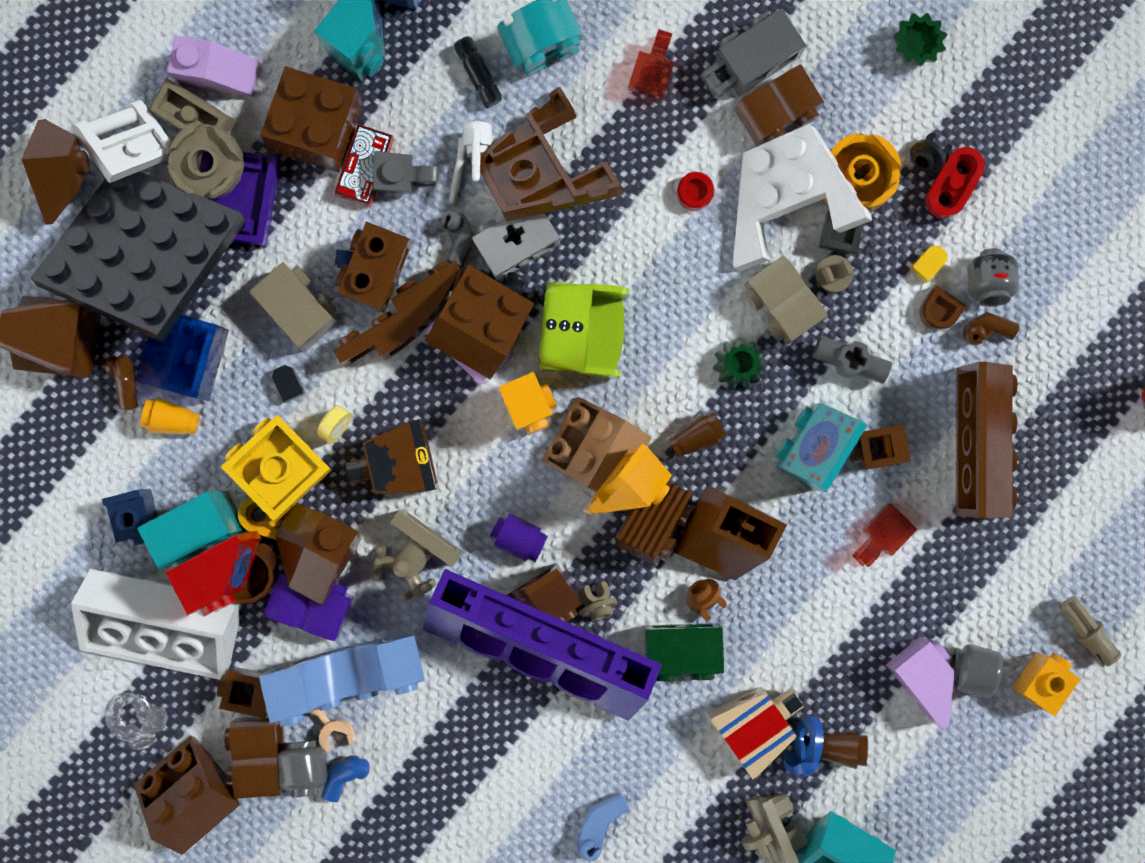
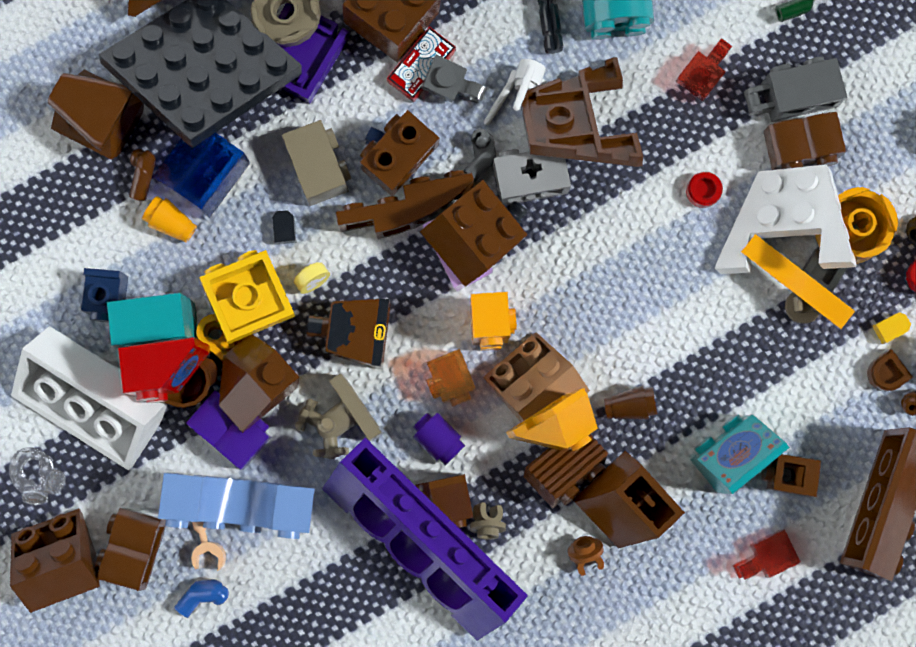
camera: 20 degrees right, 5 degrees down
(233, 694) = (131, 486): reddish brown brick -> none
(302, 768) = (167, 574): dark grey head -> none
(509, 475) = (450, 379): none -> clear orange brick
(582, 329) = (562, 273): lime piece -> none
(686, 650) = (553, 595): dark green brick -> none
(739, 364) = (690, 355): dark green piece -> none
(784, 300) = (750, 313): dark tan brick -> none
(820, 252) = (798, 281): none -> light orange sticker
(868, 367) = (806, 399): dark grey axle -> none

